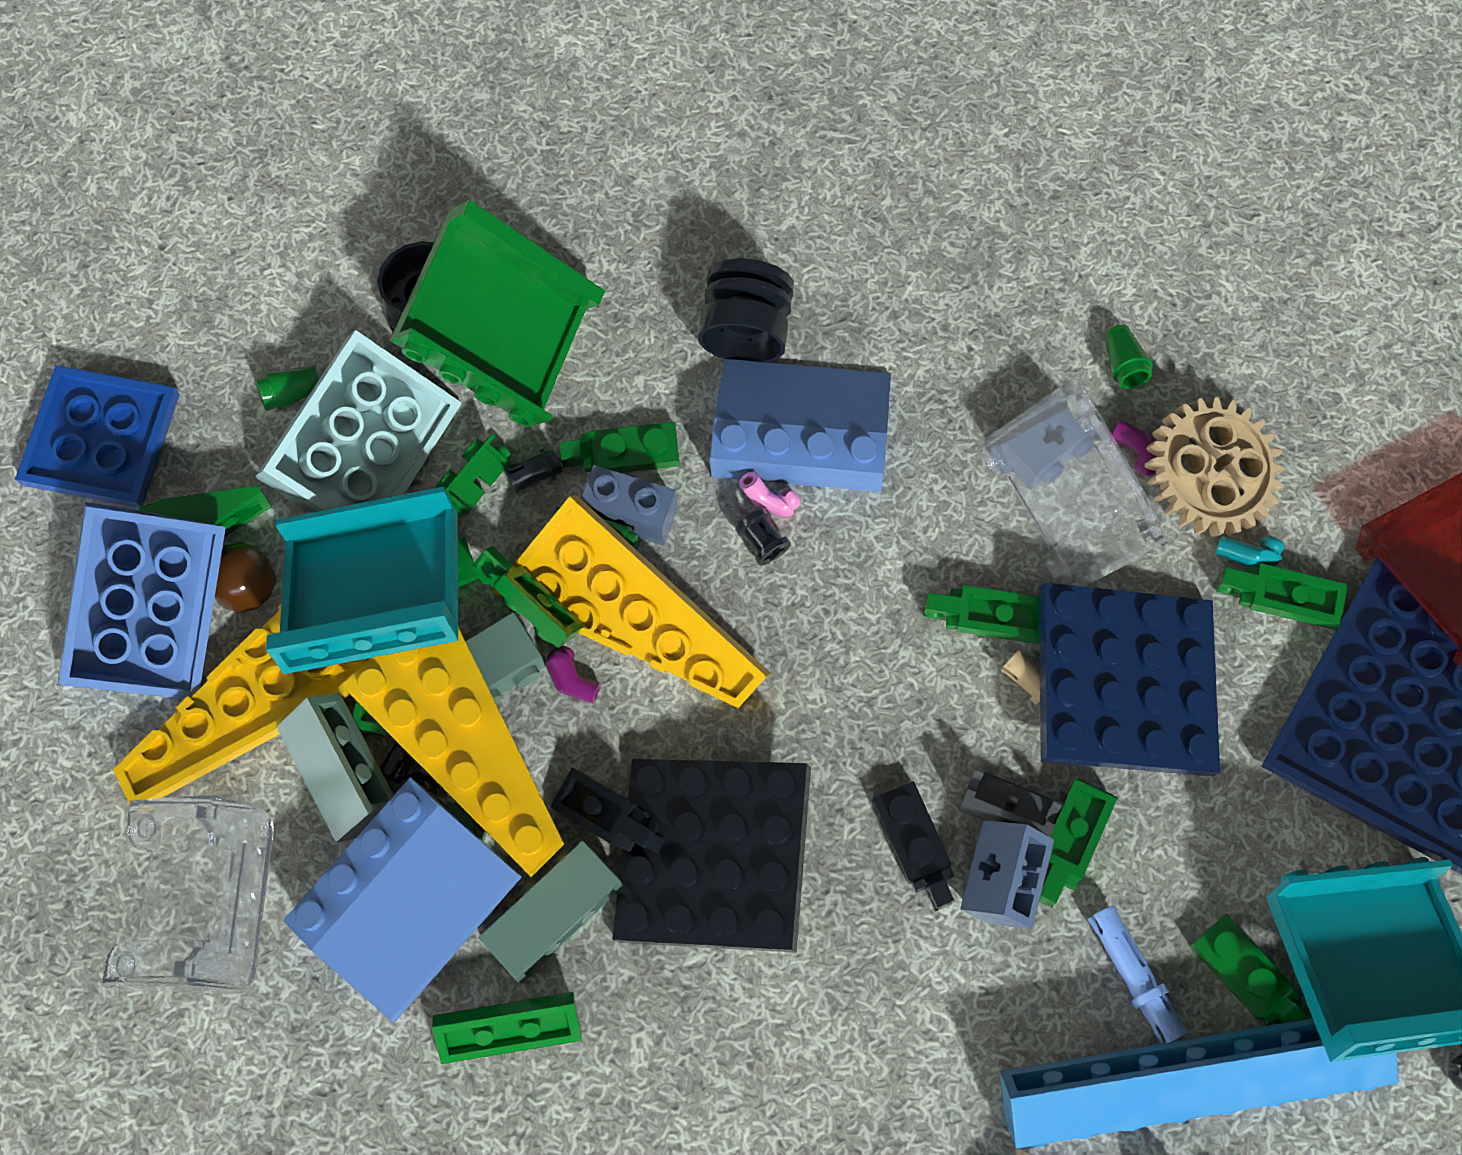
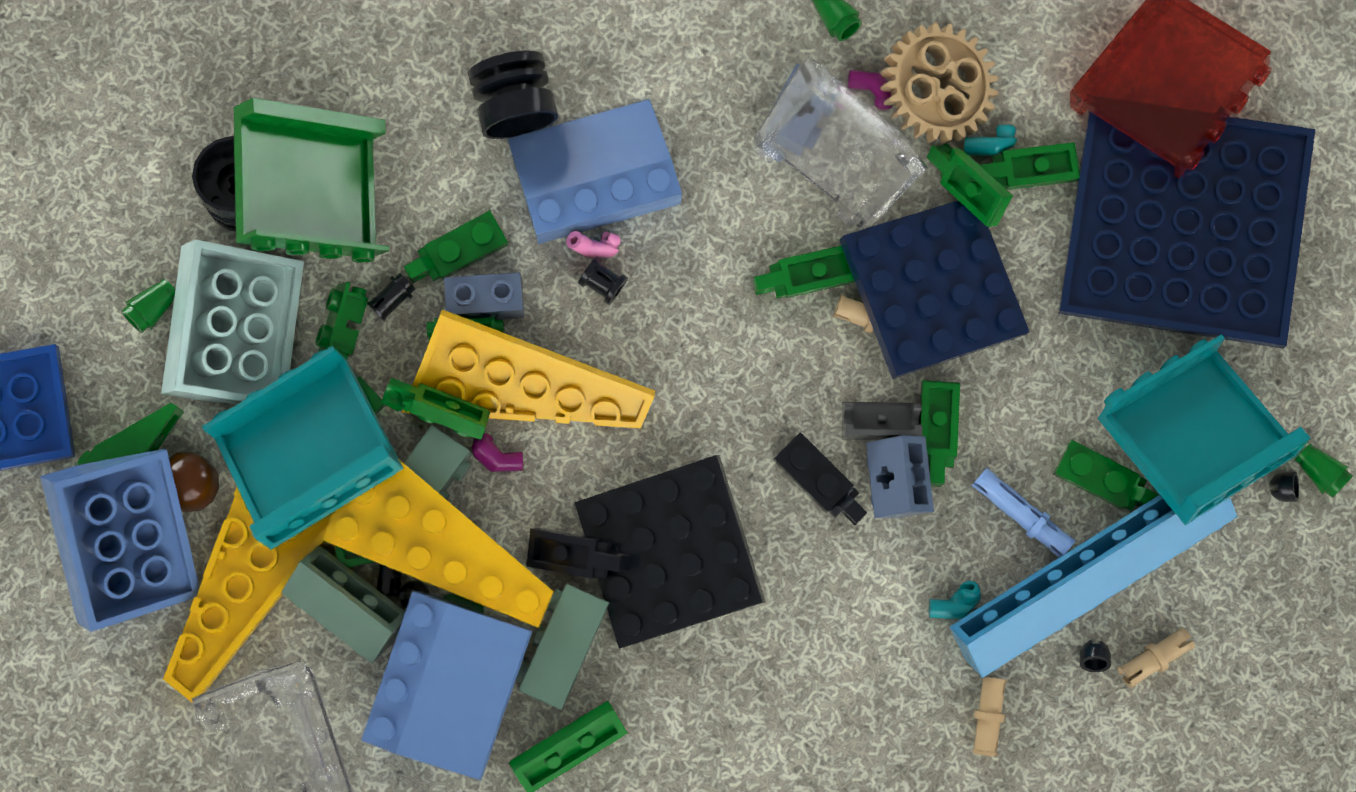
camera: 35 degrees left, 10 degrees up
(1023, 1051) = (959, 605): none -> teal arm
(1211, 584) = (970, 184): none -> green hinge

